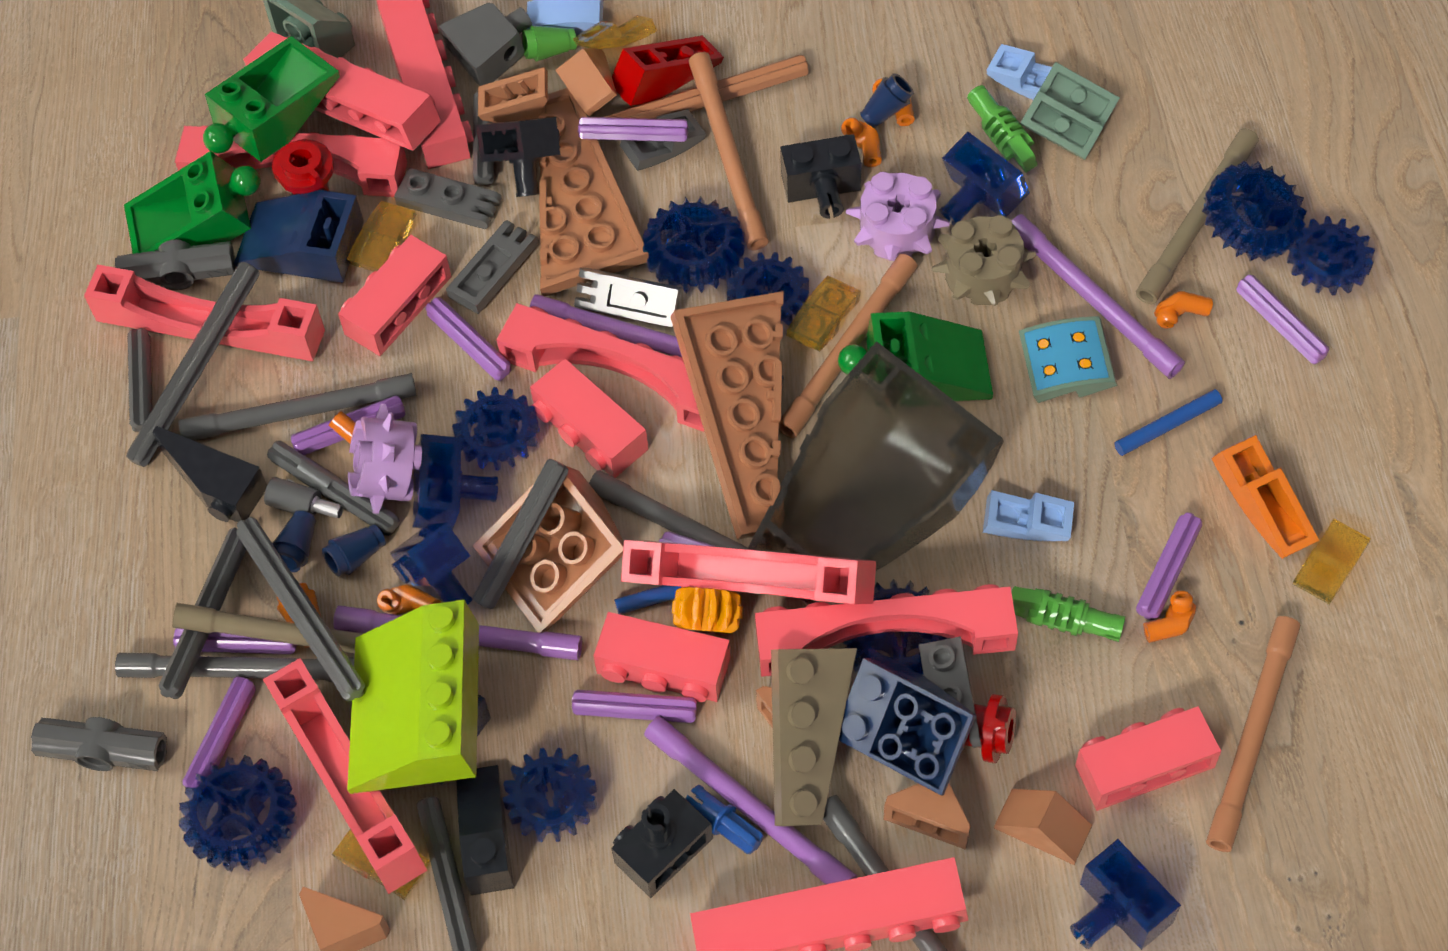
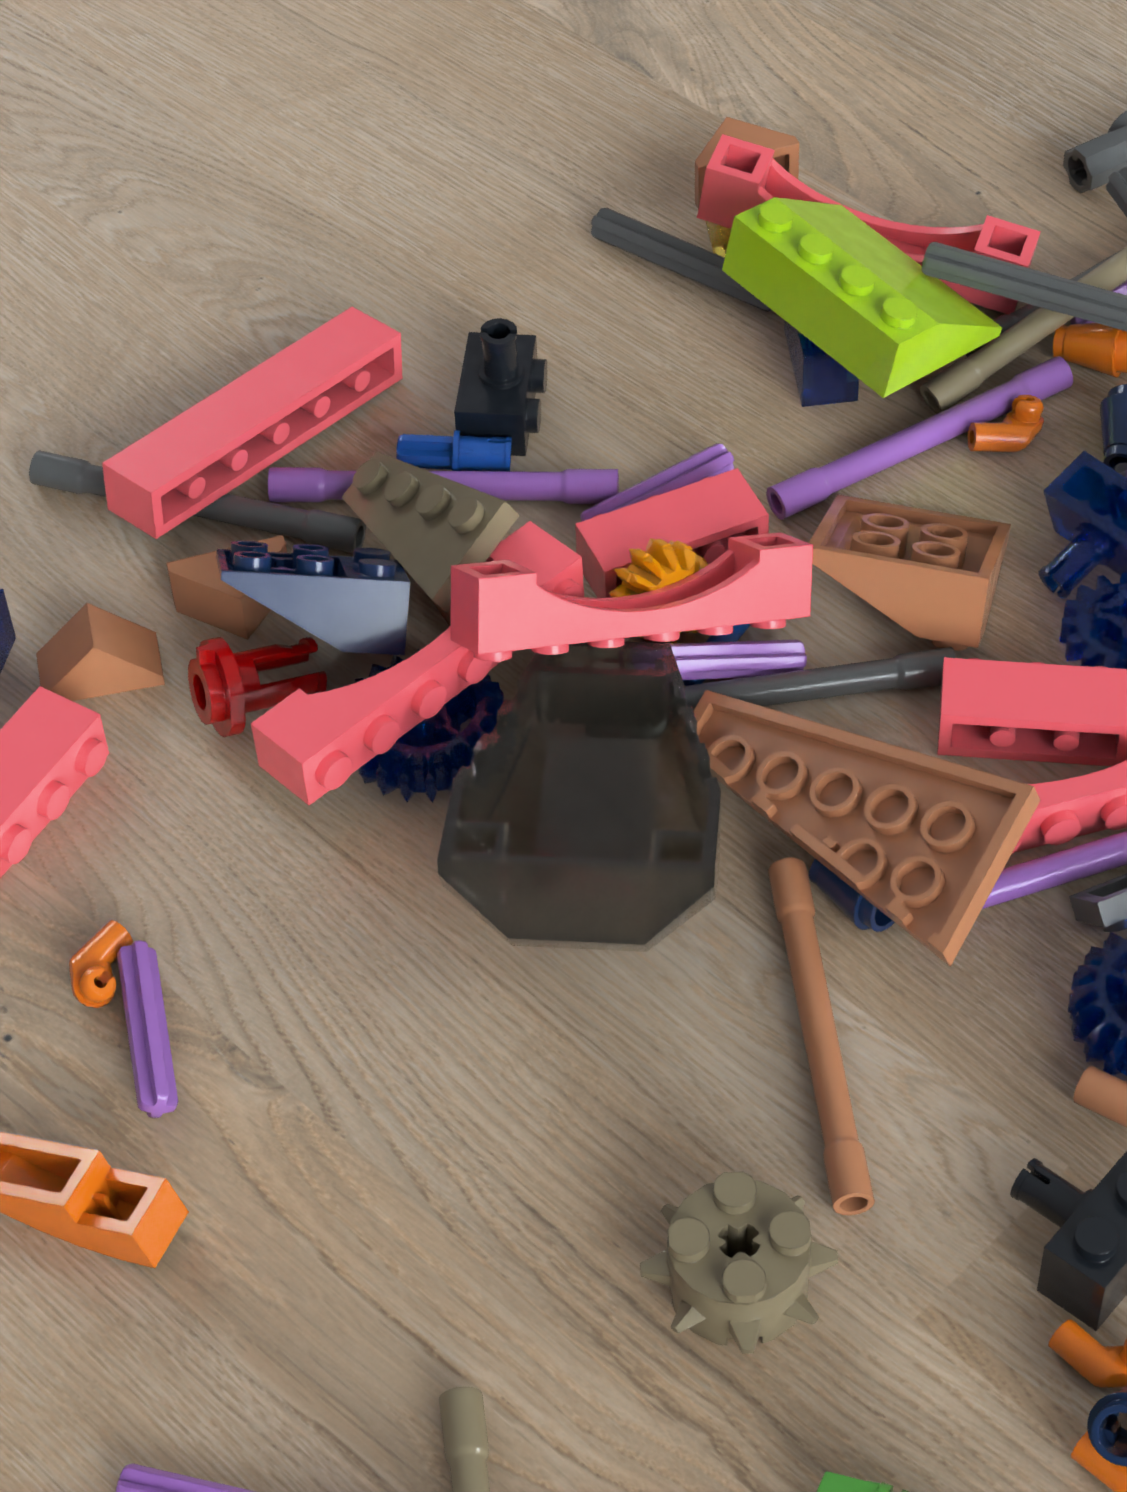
camera: 140 degrees right, 10 degrees down
(221, 729) = (1041, 215): medium lavender axle -> none
(257, 786) = (940, 173): clear blue gear -> none
(429, 561) = (1014, 433): clear blue brick -> none
(483, 832) = (690, 299): black slope -> none
(520, 534) = (952, 521): dark grey axle -> none
(568, 791) = (656, 362): clear blue gear -> none
(776, 276) = (993, 1014): clear blue gear -> none
(822, 313) = (890, 1039): clear yellow slope -> none
(897, 215) = (926, 1242): lavender brick -> none
(937, 349) = (691, 1057): green slope -> none
(947, 668) = (285, 651): dark grey hinge -> none
(983, 179) = (856, 1386): clear blue brick -> none
(1028, 519) = (371, 979): light blue slope -> none
(1065, 613) = (240, 880): bright green hinge -> none
(1067, 358) = (499, 1214): slope -> none
(1152, 348) = (692, 1369): medium lavender piece -> none
(1168, 422) = (286, 1230): blue bar -> none
(1179, 303) = (405, 1402): orange arm -> none

